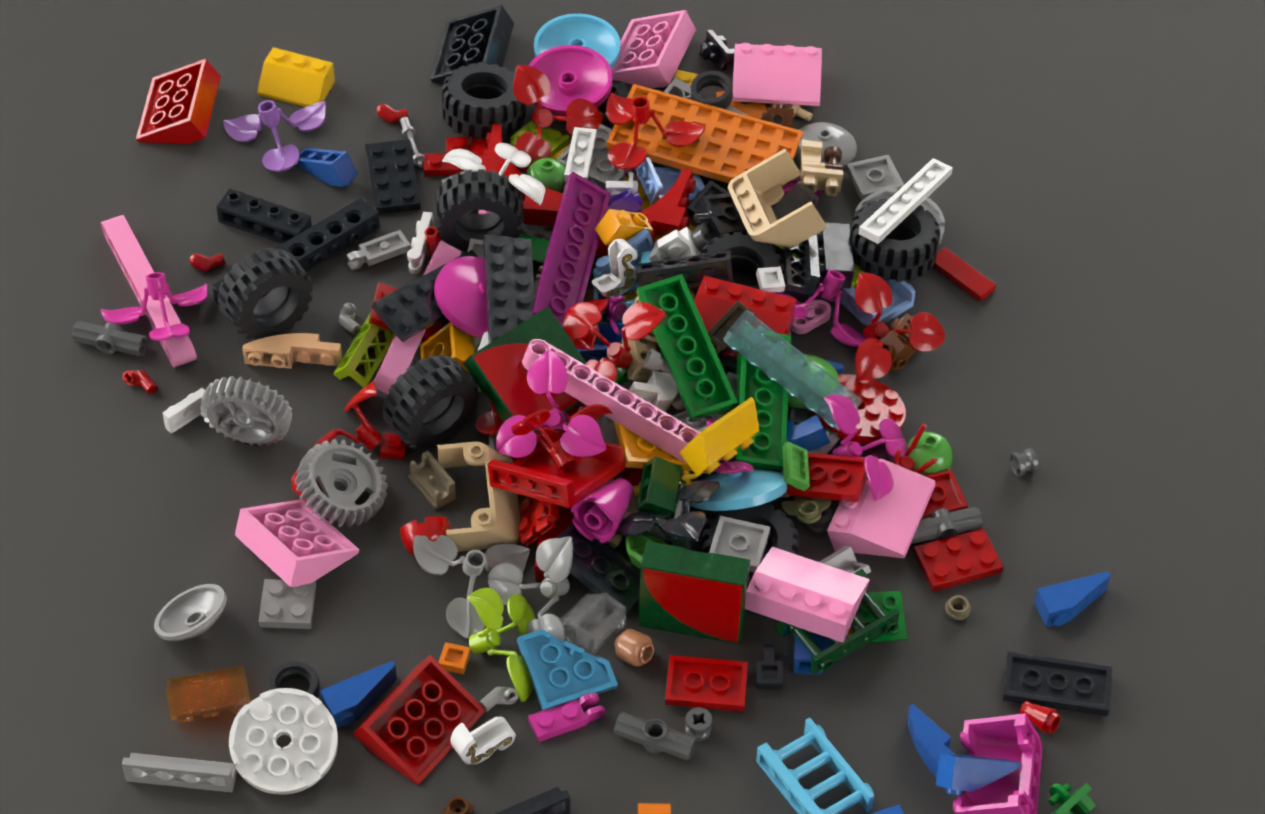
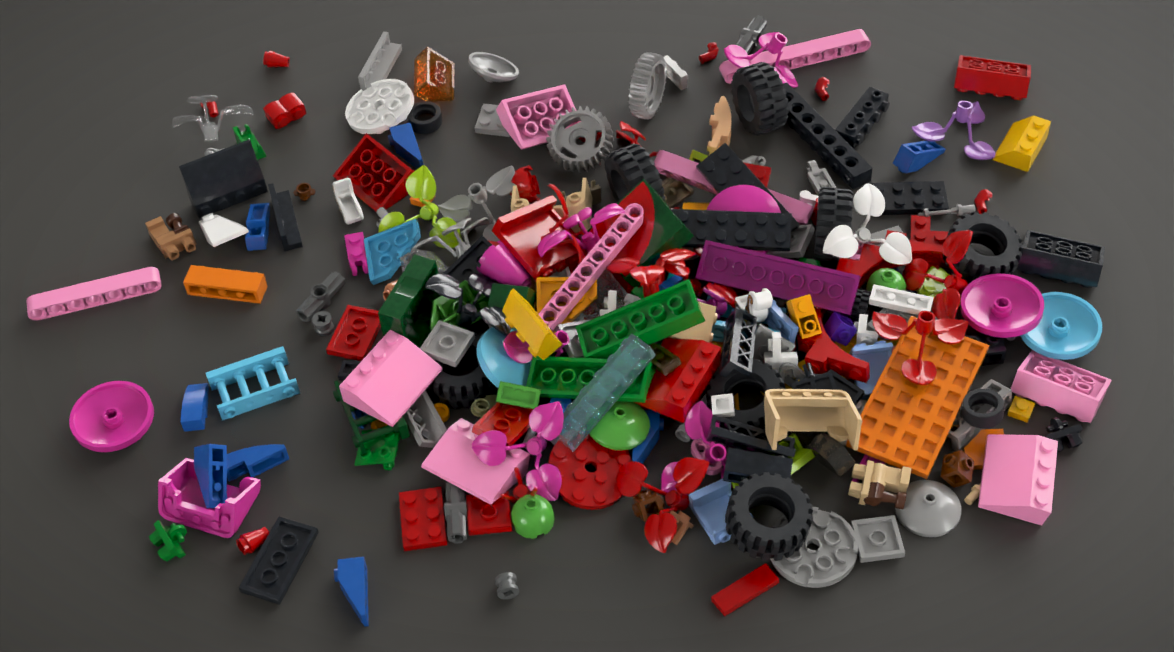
camera: 105 degrees right, 0 degrees up
(905, 201) = (798, 517): white plate -> none
(958, 602) = (371, 502): dark tan plate -> none

